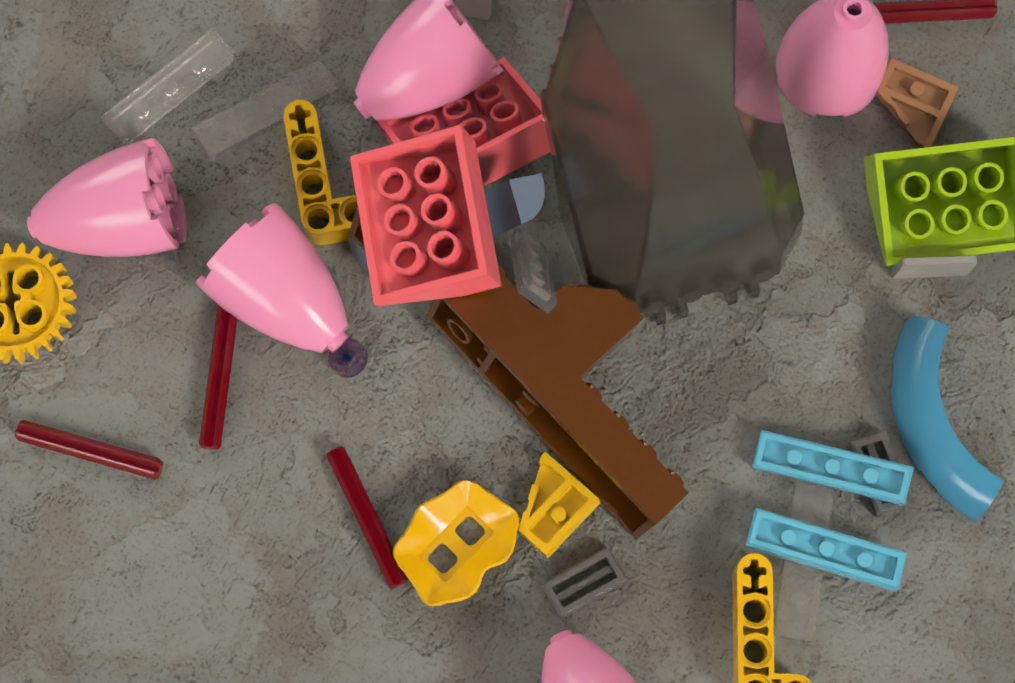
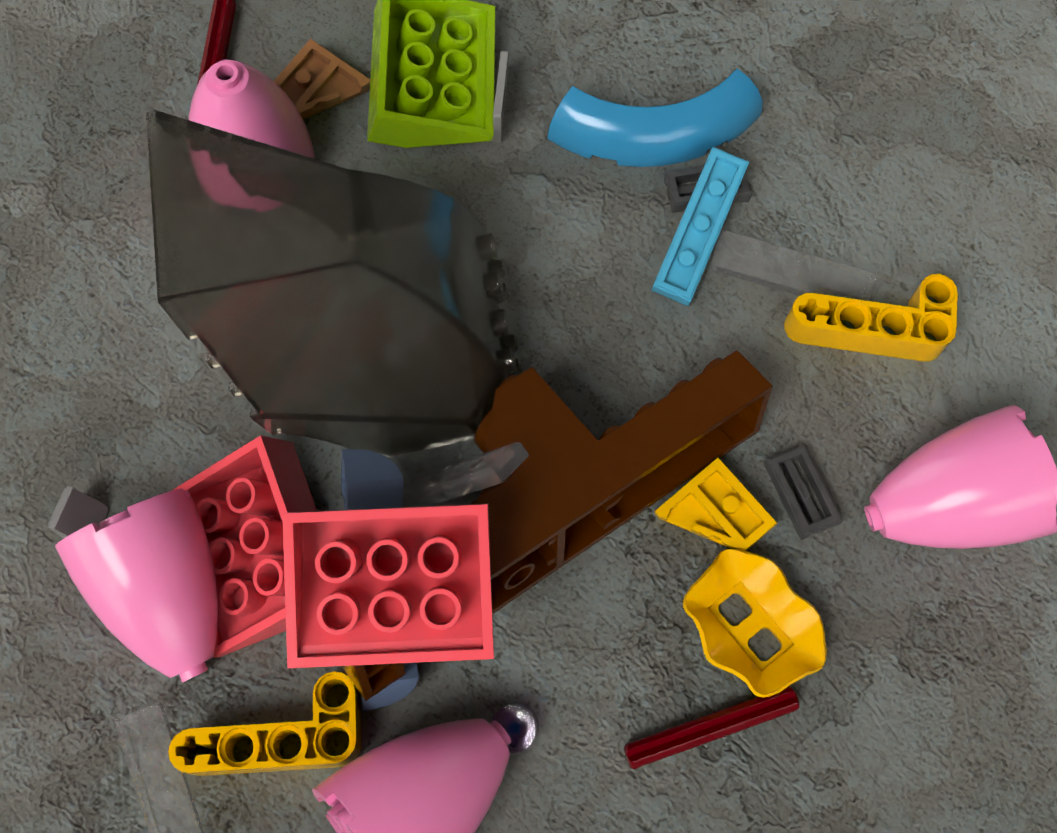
camera: 85 degrees left, 5 degrees down
(825, 549) = (786, 246): medium azure tile -> none

